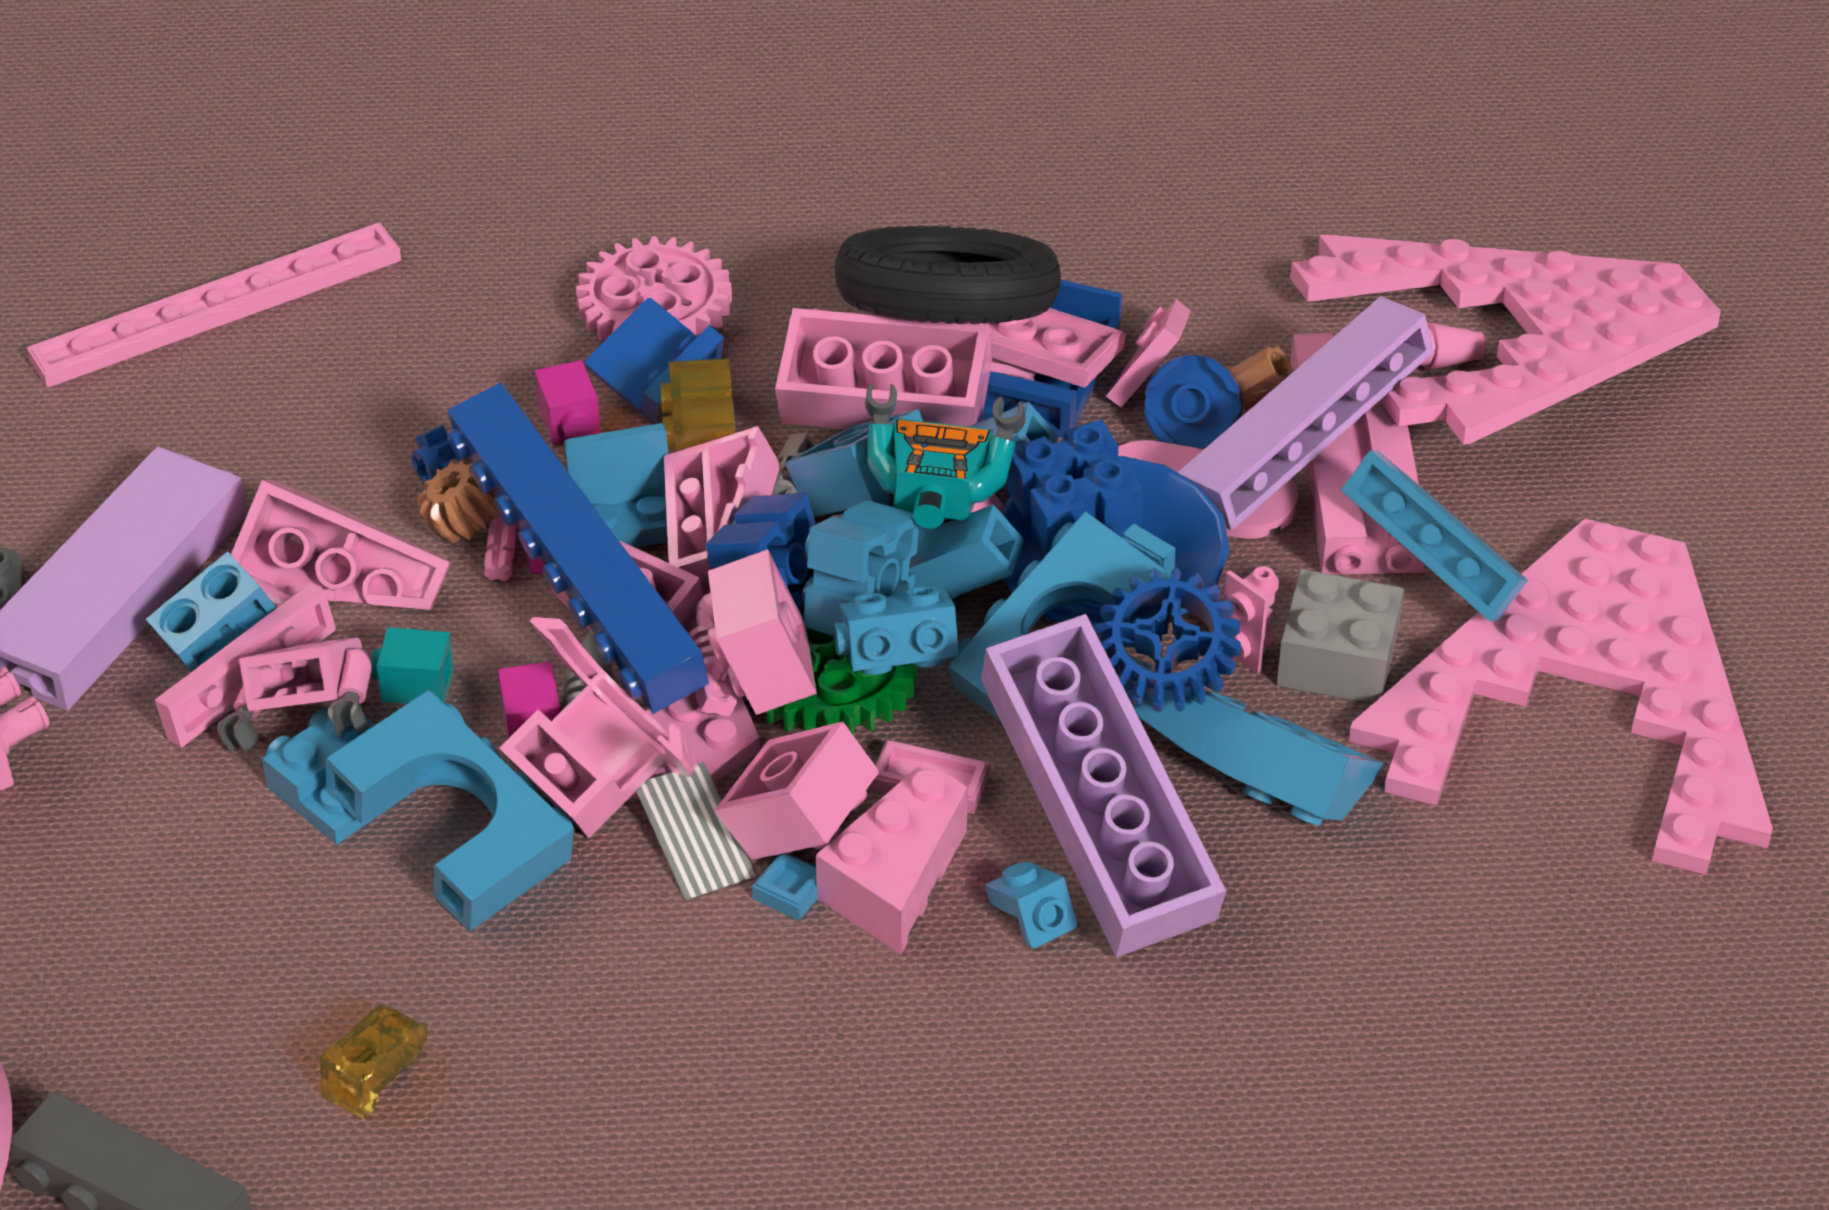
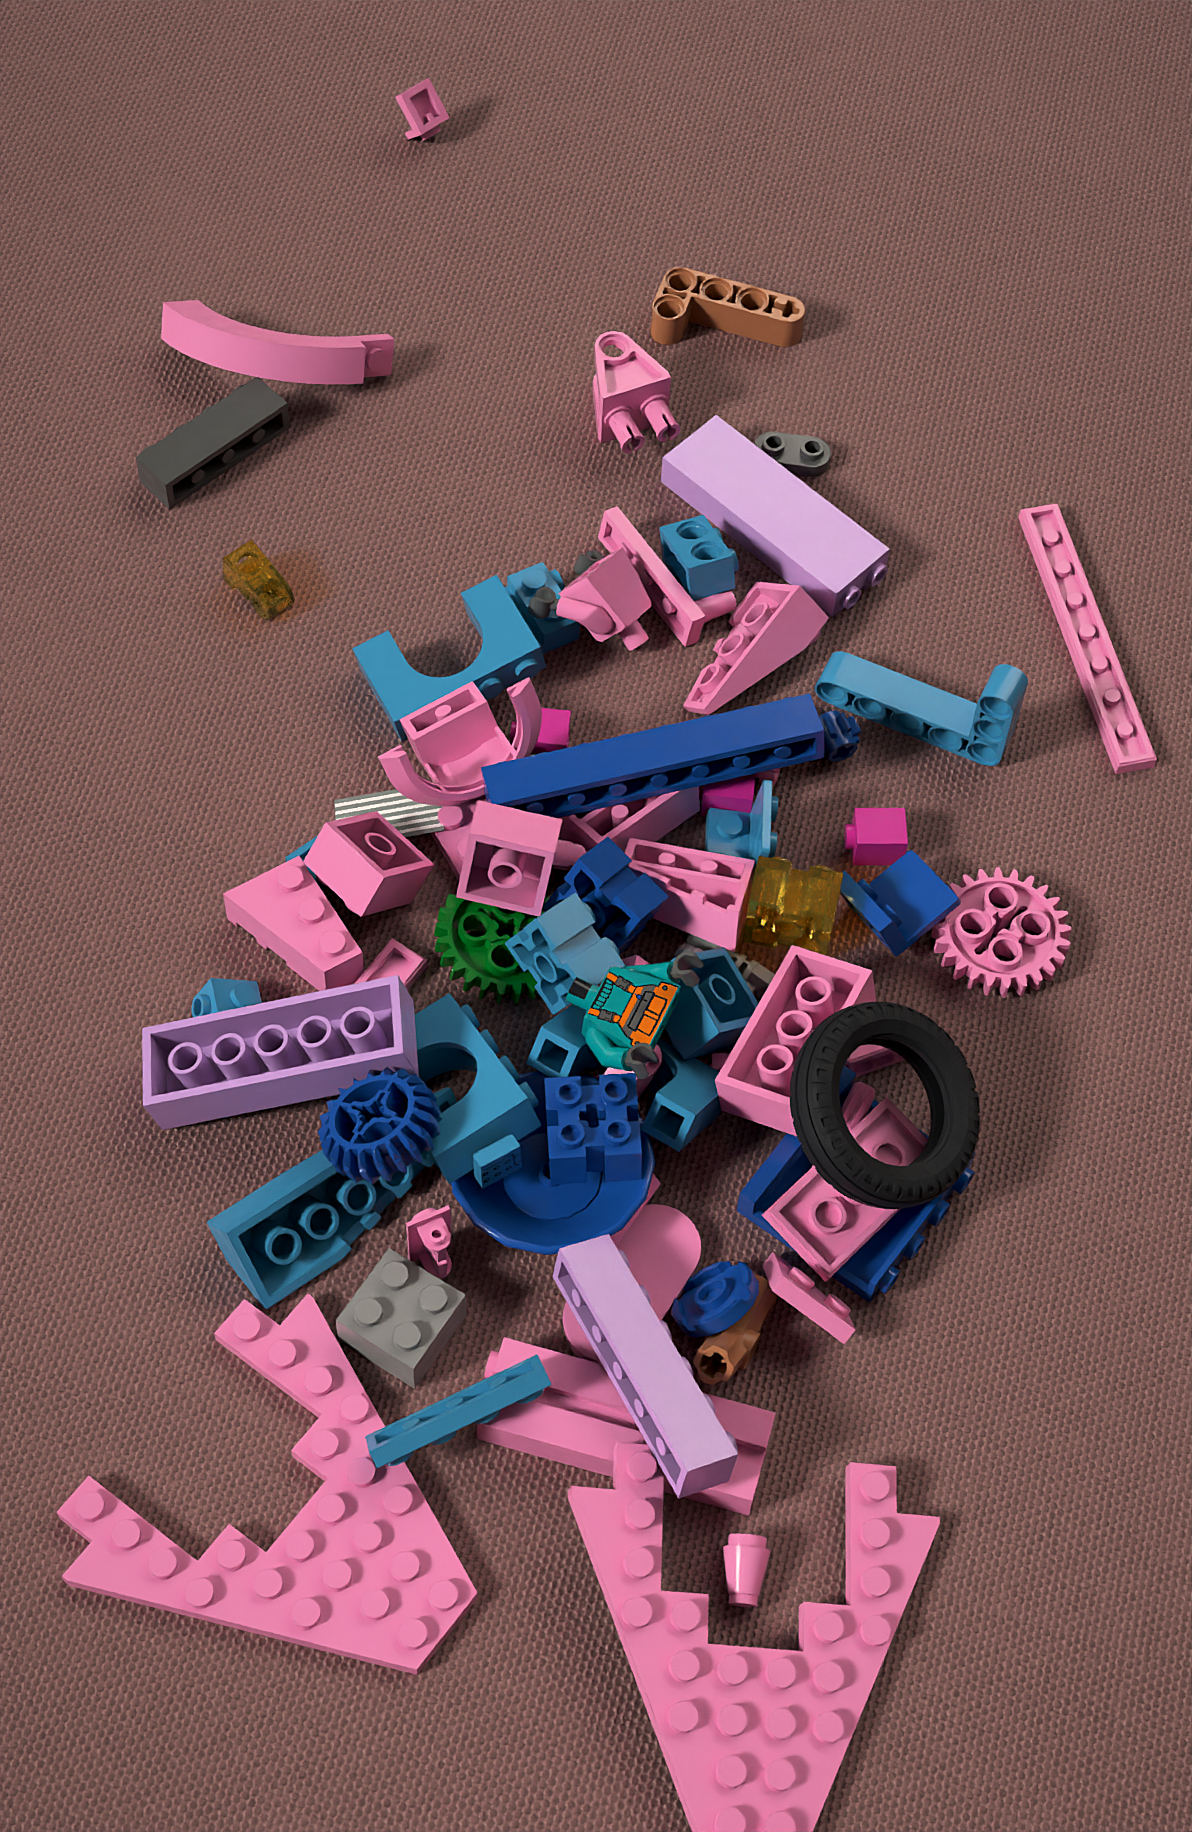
camera: 105 degrees right, 15 degrees up
(384, 375) = (925, 712): none -> dark azure beam
(413, 664) = (612, 675): teal brick -> none
(897, 630) = (483, 957): dark azure brick -> none

